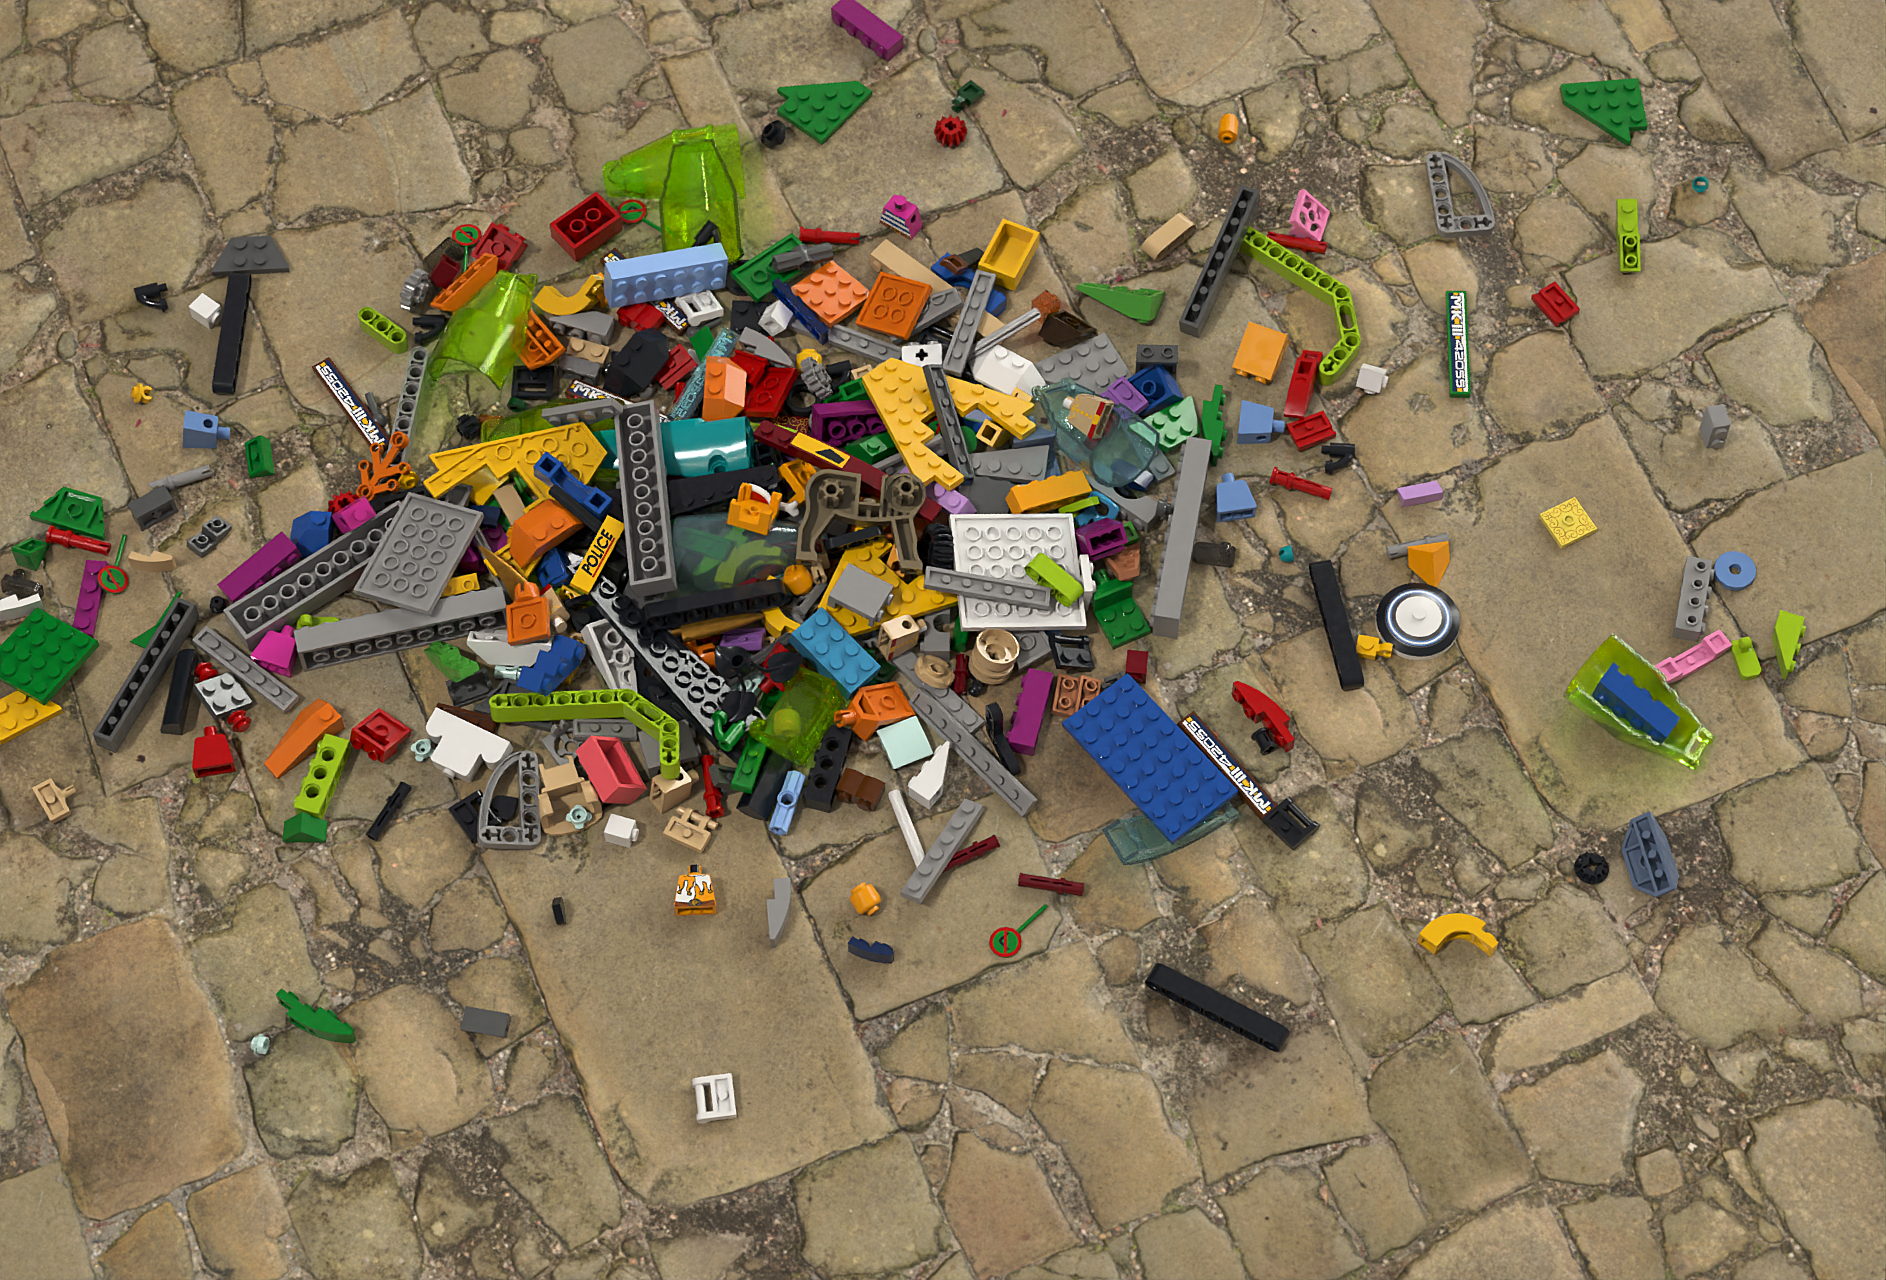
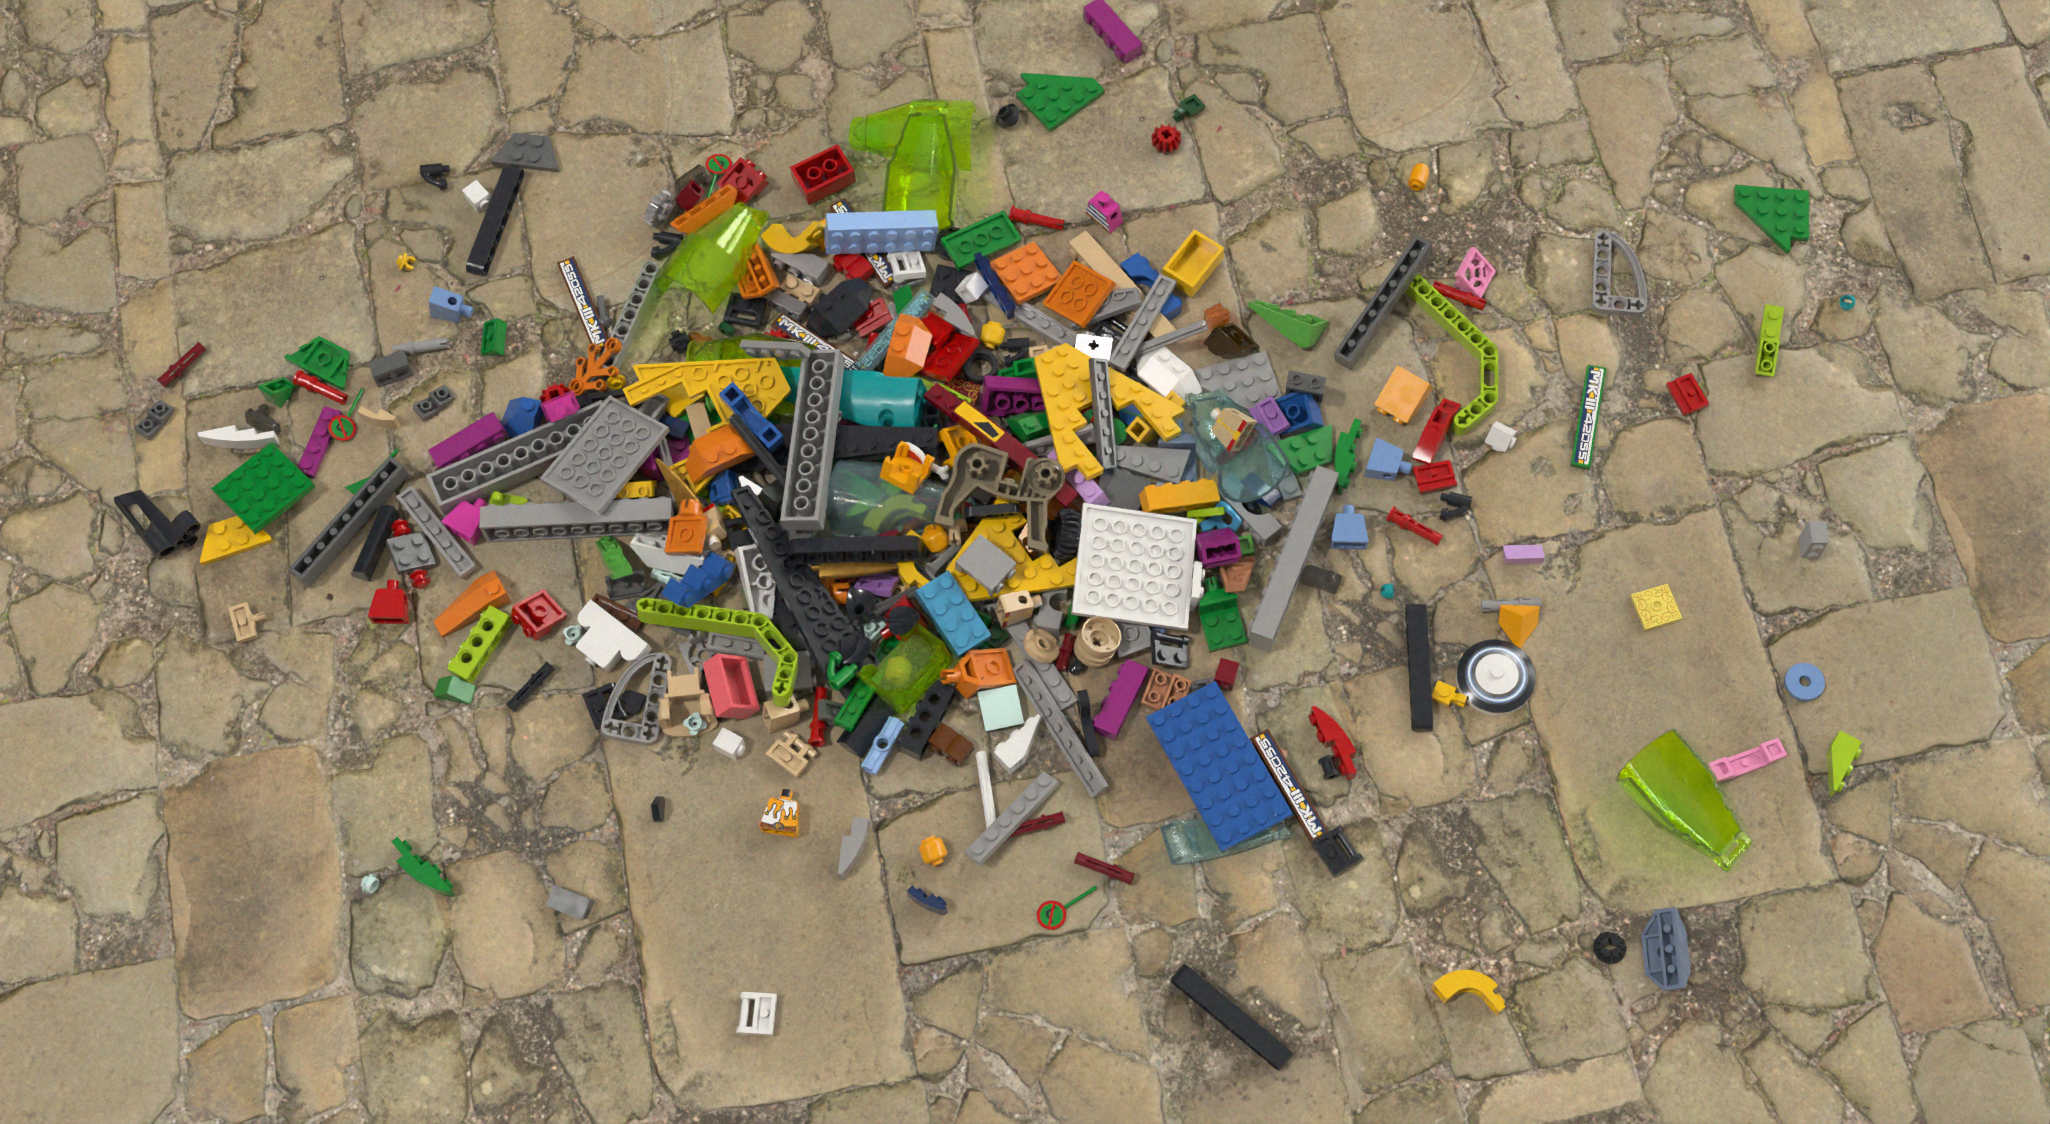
camera: 15 degrees right, 5 degrees up
(217, 604) = (427, 467): black piece -> none
(379, 322) = (621, 233): lime beam -> none
(597, 555) = (759, 485): yellow tile -> none
(633, 212) = (868, 167): piece -> none
(706, 233) = (926, 199): black plant -> none
(802, 257) = (1007, 235): dark grey piece -> none
(816, 378) = (993, 350): light grey gear -> none
(959, 263) = (1145, 264): piece -> none
(986, 587) = (1102, 578): light grey plate -> none
(1049, 574) = (1165, 581): lime beam -> none
(1162, 508) = (1281, 528): dark grey plate -> none
(1168, 237) = (1342, 270): tan beam -> none
(1634, 705) = (1682, 800): blue wedge -> none
(1692, 599) = (1758, 703): light grey brick -> none
(1745, 658) = (1797, 770): lime piece -> none

